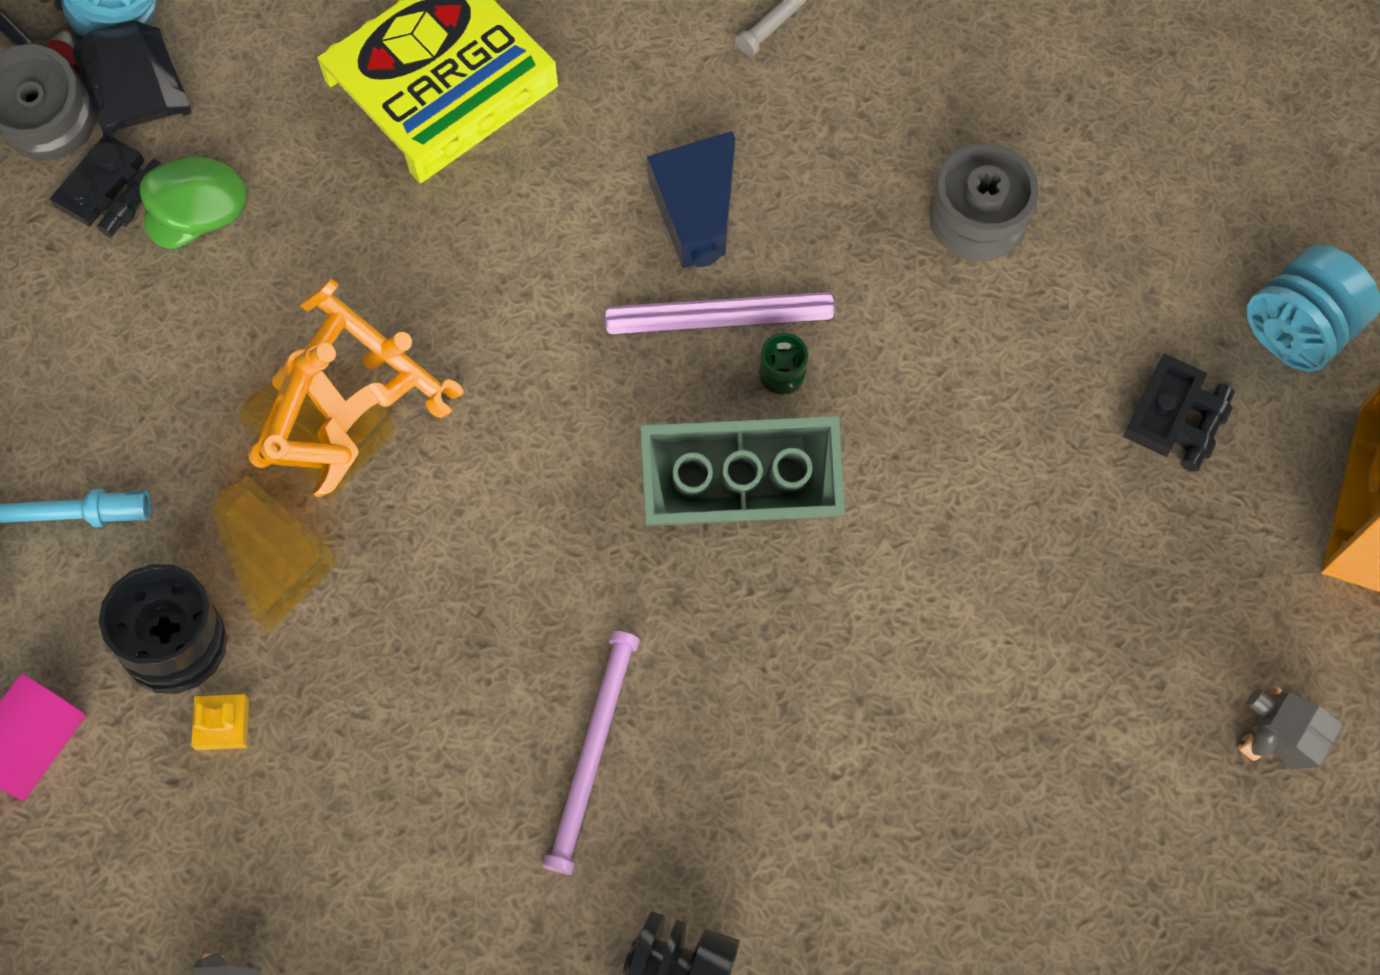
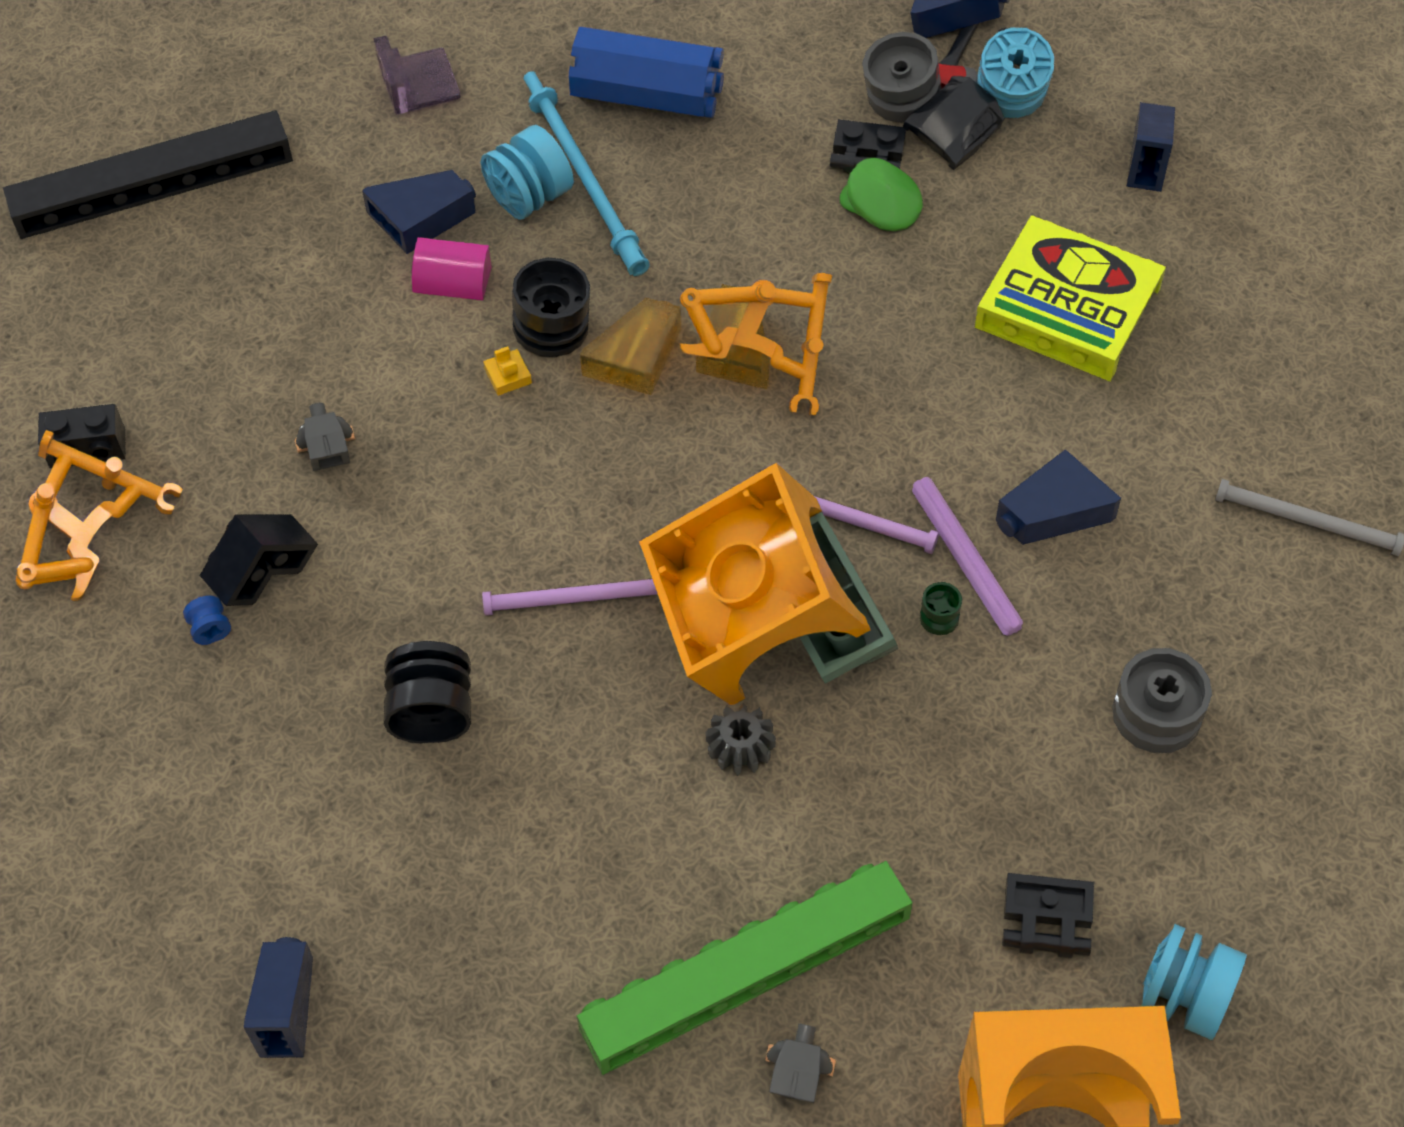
camera: 70 degrees right, 10 degrees down
(685, 342) = (879, 525): none -> lavender bar
(711, 541) = (745, 579): none -> light orange piece
(863, 652) = (740, 752): none -> dark grey gear
(1152, 746) = (743, 966): none -> bright green brick

